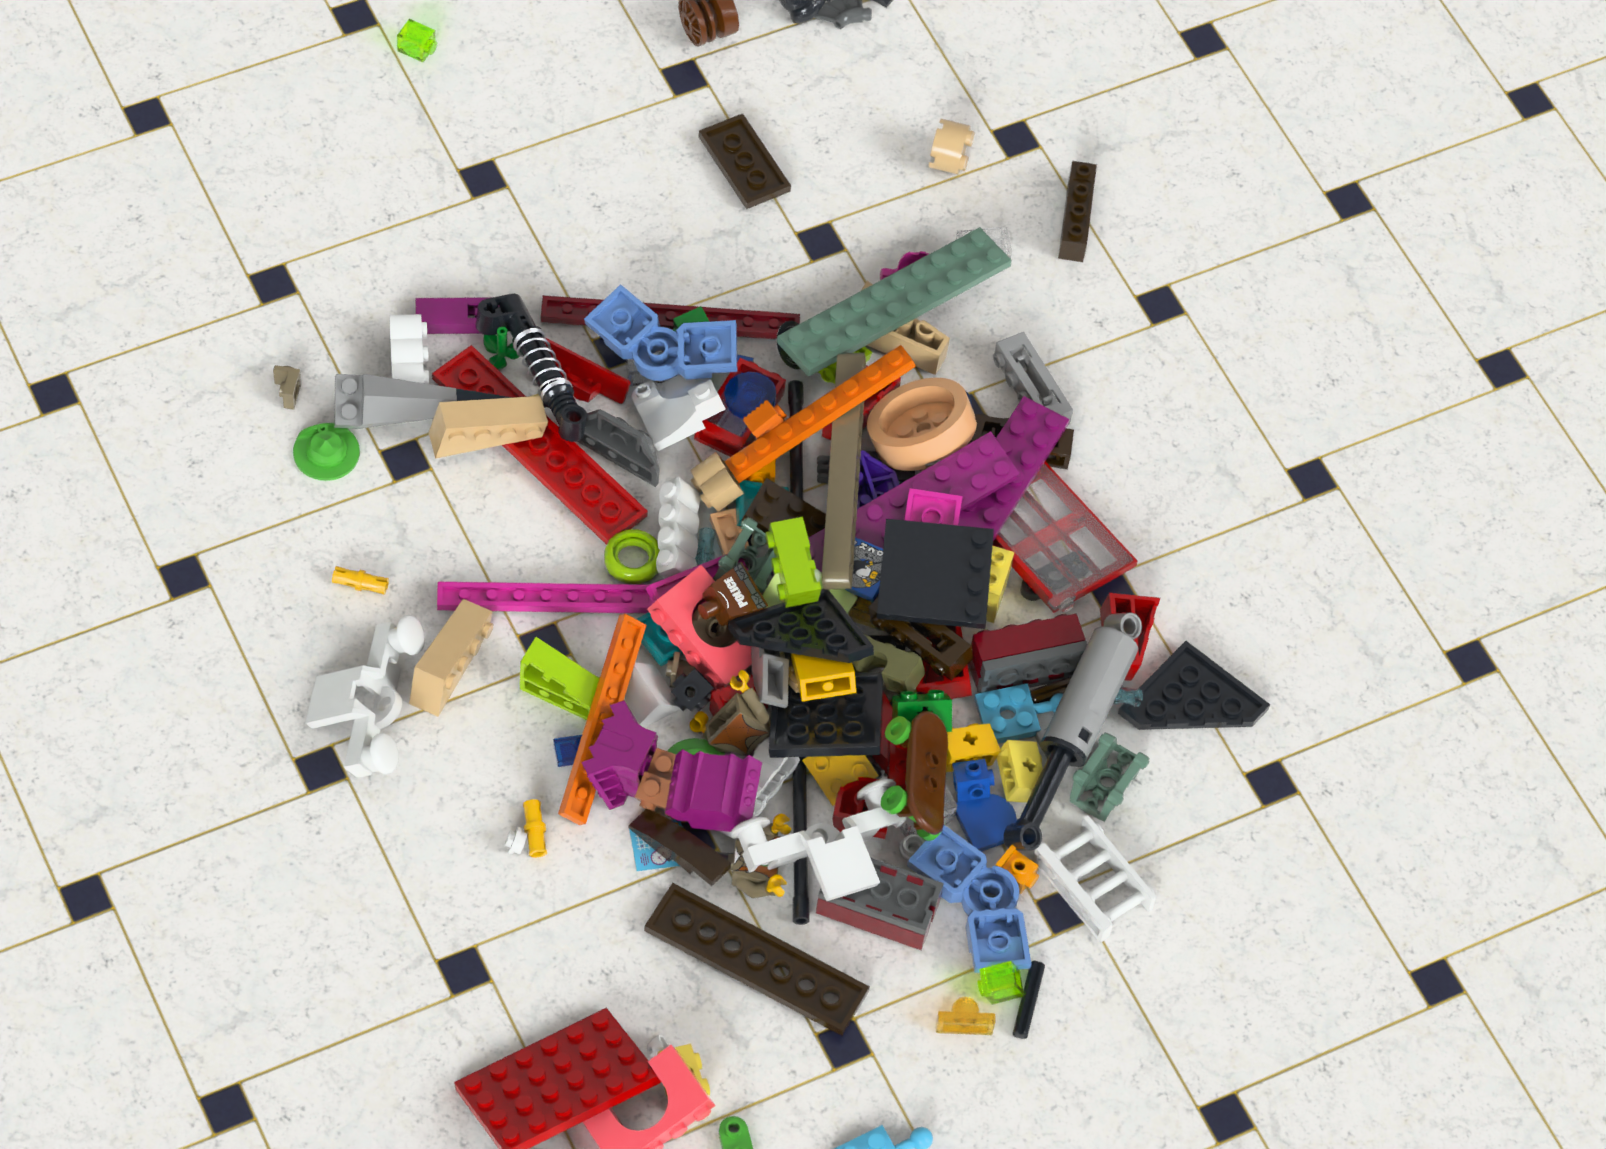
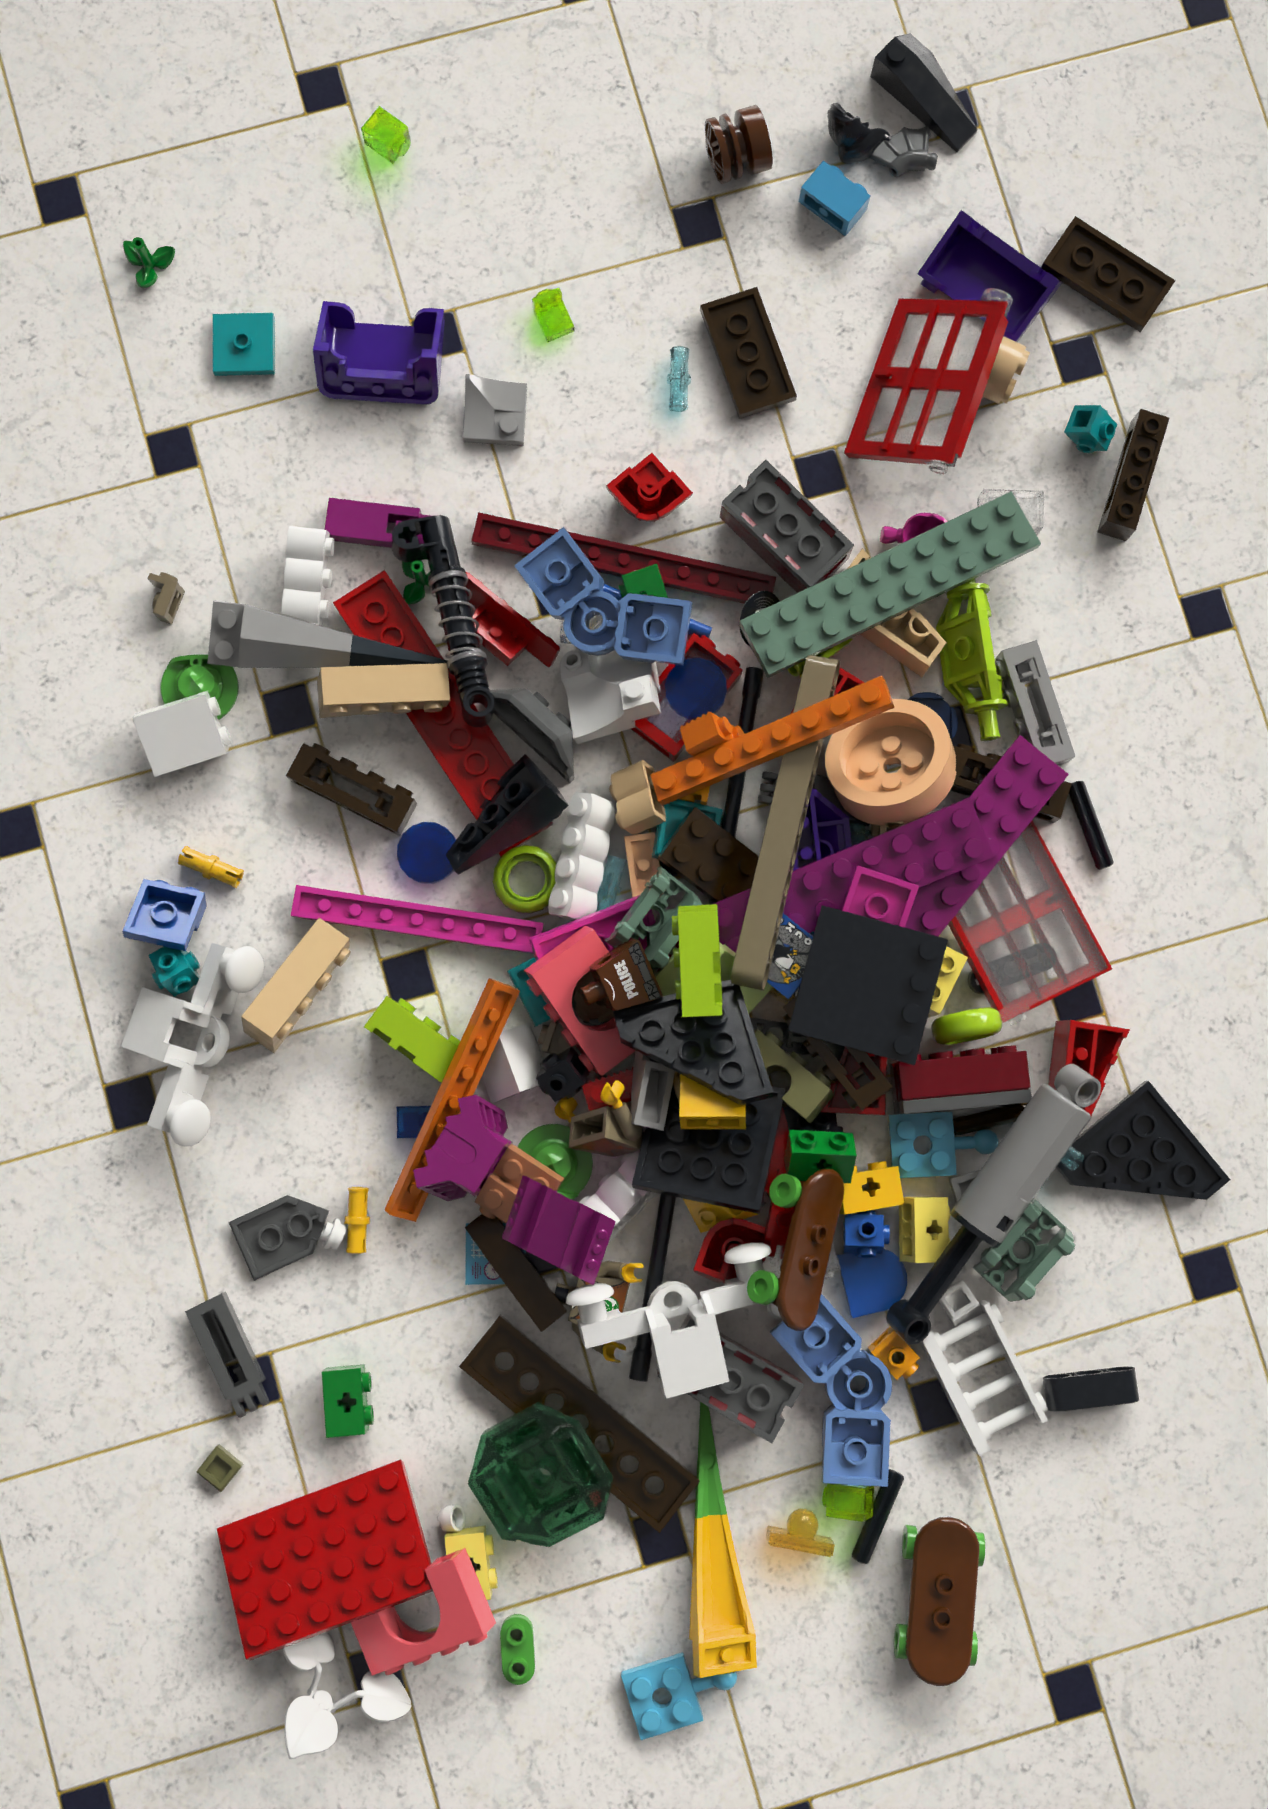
camera: 10 degrees right, 25 degrees up
(230, 147) = (139, 255): none -> green plant
(321, 200) = (244, 344): none -> teal plate
(321, 479) = (182, 733): none -> white brick
(331, 611) = (165, 914): none -> plate
(344, 652) = (174, 970): none -> teal brick
(435, 938) = (223, 1341): none -> dark grey hinge
(441, 199) = (378, 359): none -> dark purple windscreen
(447, 1038) = (219, 1468): none -> olive tile
(466, 849) = (278, 1234): none -> dark grey tile
(472, 507) = (307, 766): none -> dark brown brick
(541, 225) = (494, 411): none -> light grey plate
(544, 549) = (424, 851): none -> clear blue tile
(550, 980) = (338, 1417): none -> green brick
(576, 151) = (552, 314): none -> clear neon green bracket
(621, 494) = (517, 810): none -> black wedge
(683, 263) = (649, 490): none -> red brick
(691, 185) = (679, 379): none -> clear light blue pin
(727, 955) = (523, 1499): none -> clear green piece
(793, 46) = (834, 198): none -> dark azure brick
(798, 273) = (785, 529): none -> dark grey piece
(897, 158) = (929, 380): none -> red door
(904, 1081) = (719, 1609): none -> yellow plate
(929, 85) = (975, 260): none -> dark purple windscreen
(972, 353) = (969, 656): none -> lime plate
(1026, 76) = (1107, 274): none -> dark brown plate
(1032, 599) = (966, 1026): none -> lime wheel
(1035, 181) = (1090, 428): none -> teal brick
(1063, 829) = (960, 1304): none -> white slope
(1095, 1042) = (941, 1600): none -> reddish brown piece
(1097, 464) = (1090, 825): none -> black axle
(1189, 876) = (1091, 1388): none -> black beam

